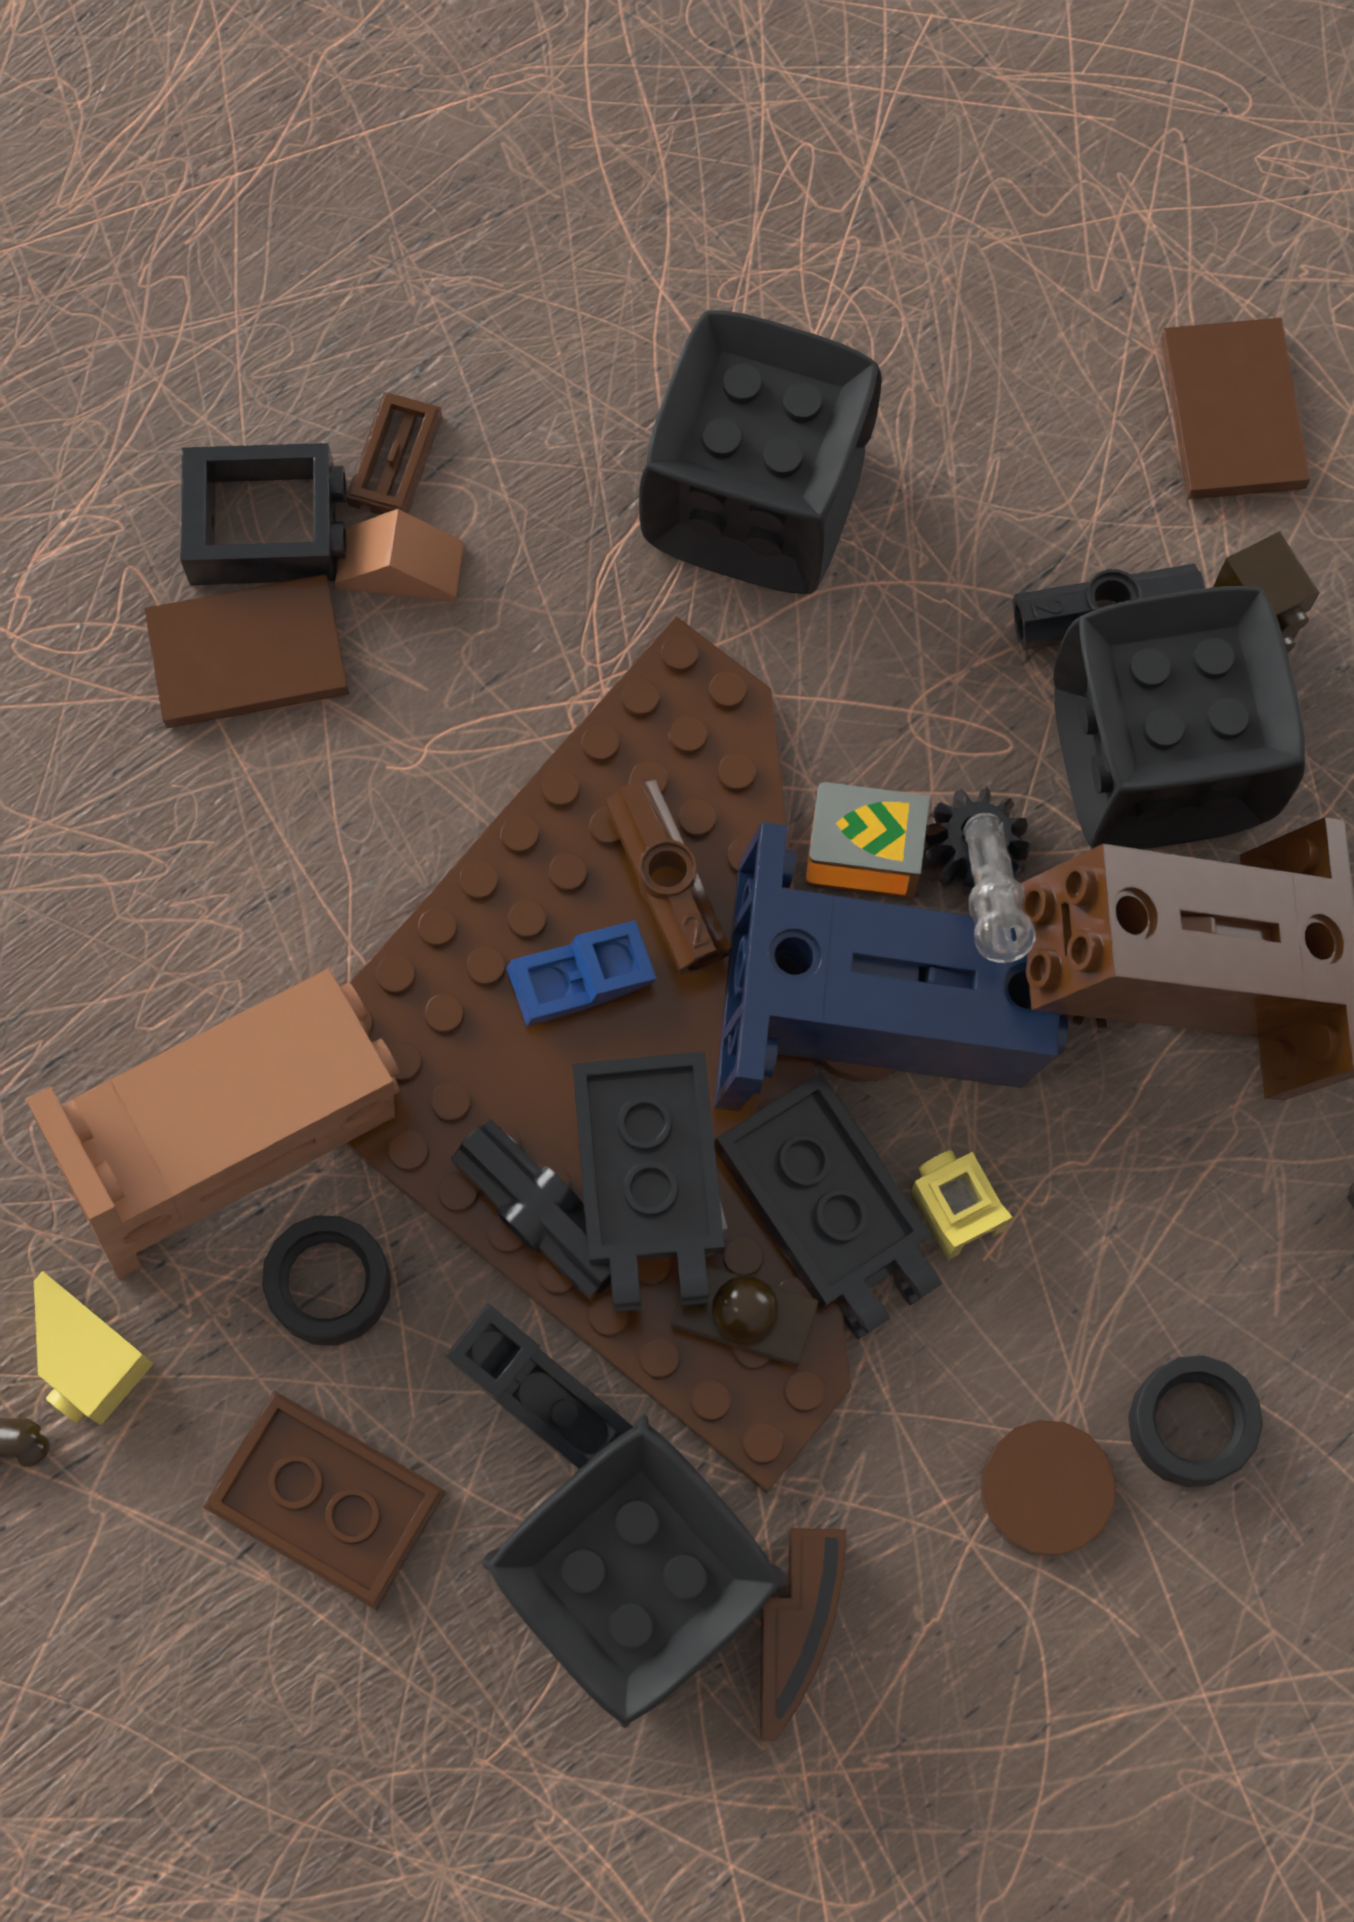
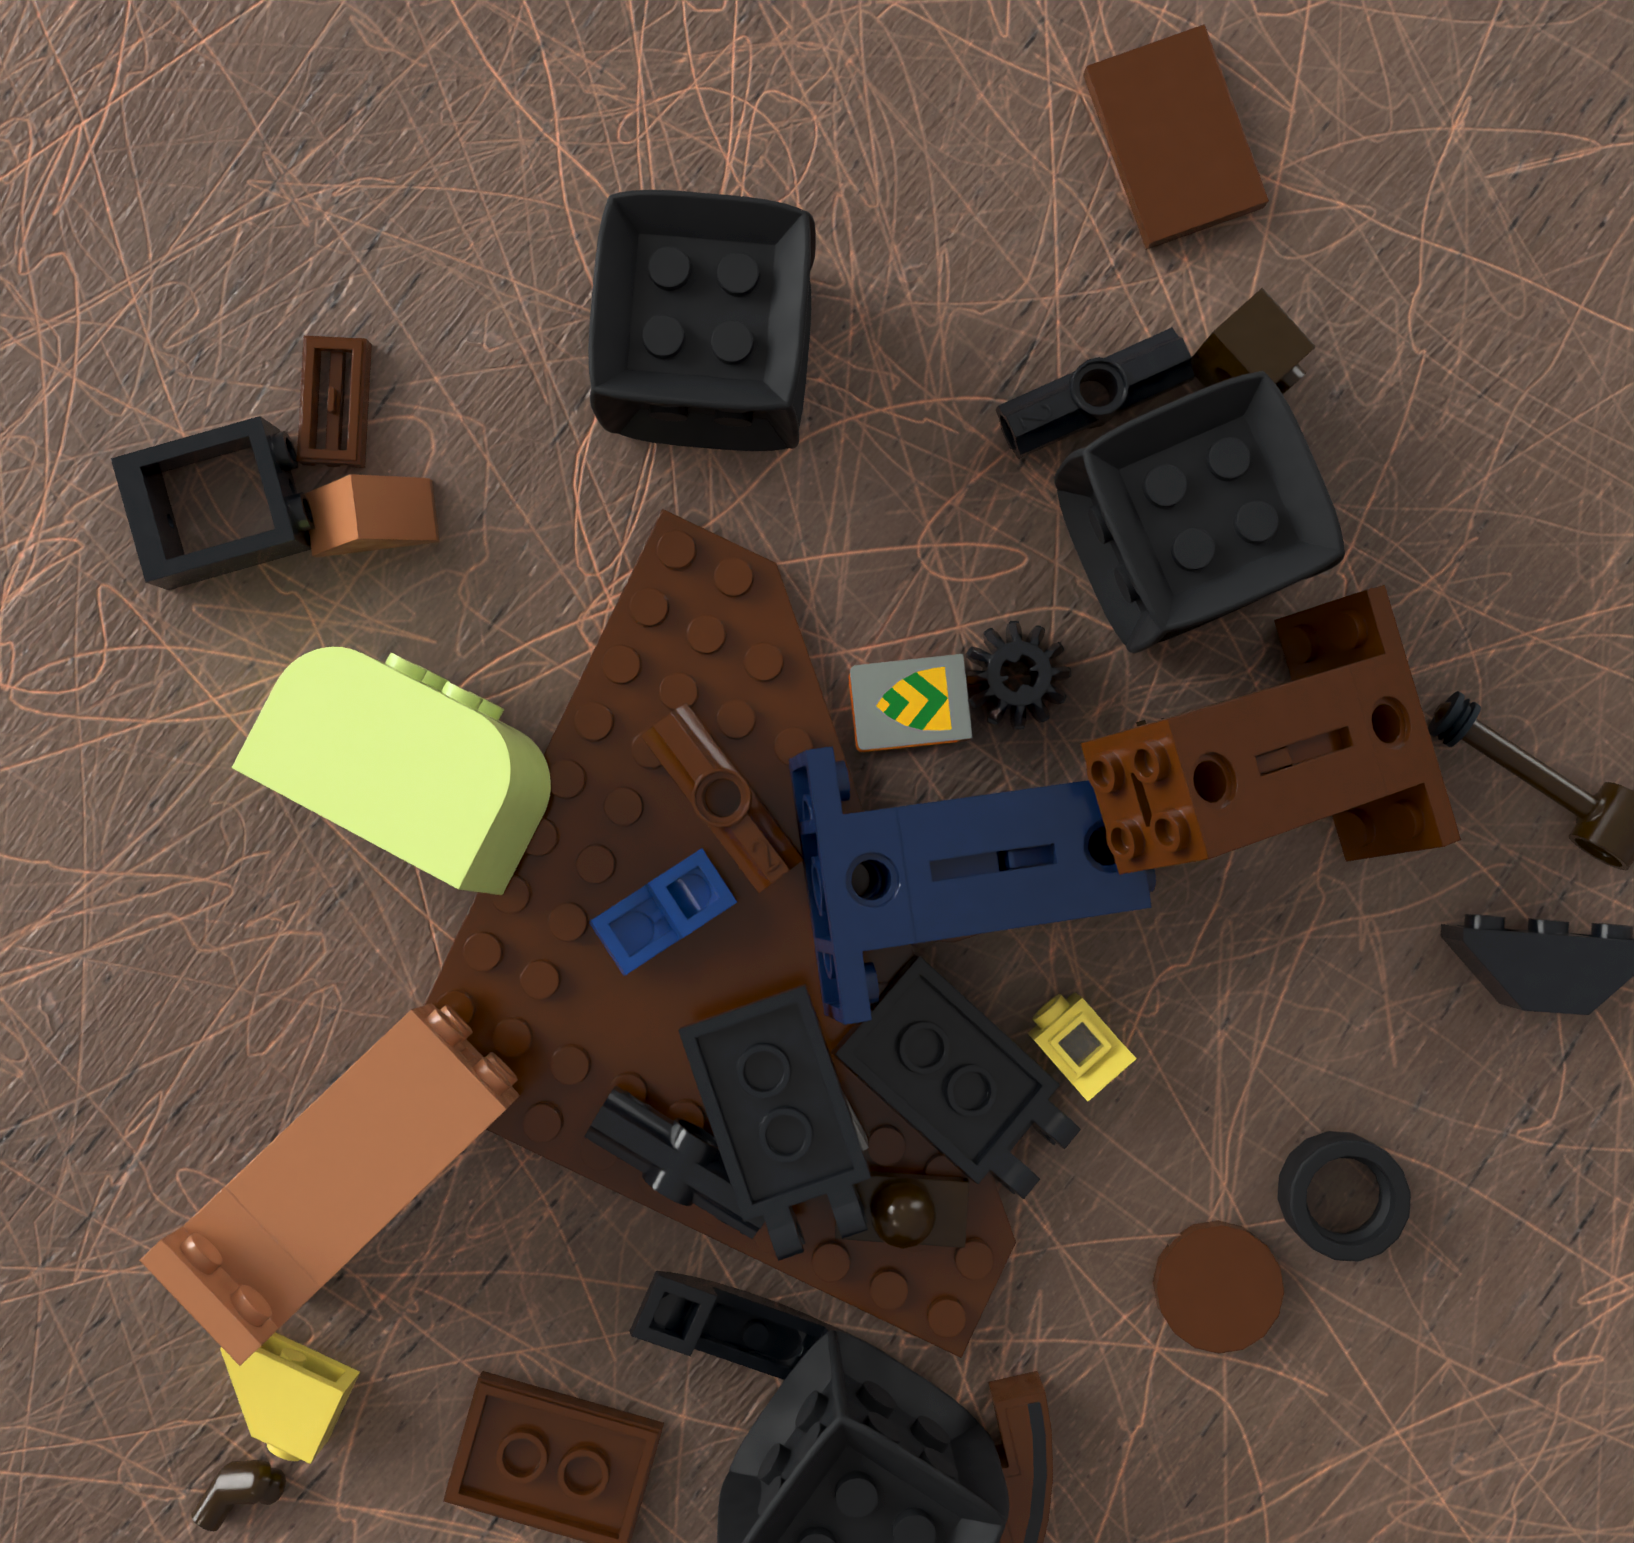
camera: 15 degrees left, 15 degrees up
(246, 651) = (227, 649): reddish brown tile -> none
(292, 1244) = (470, 1305): black tyre -> none
(373, 769) = (402, 764): none -> yellowish green brick
(997, 896) = (1060, 768): clear pin -> none

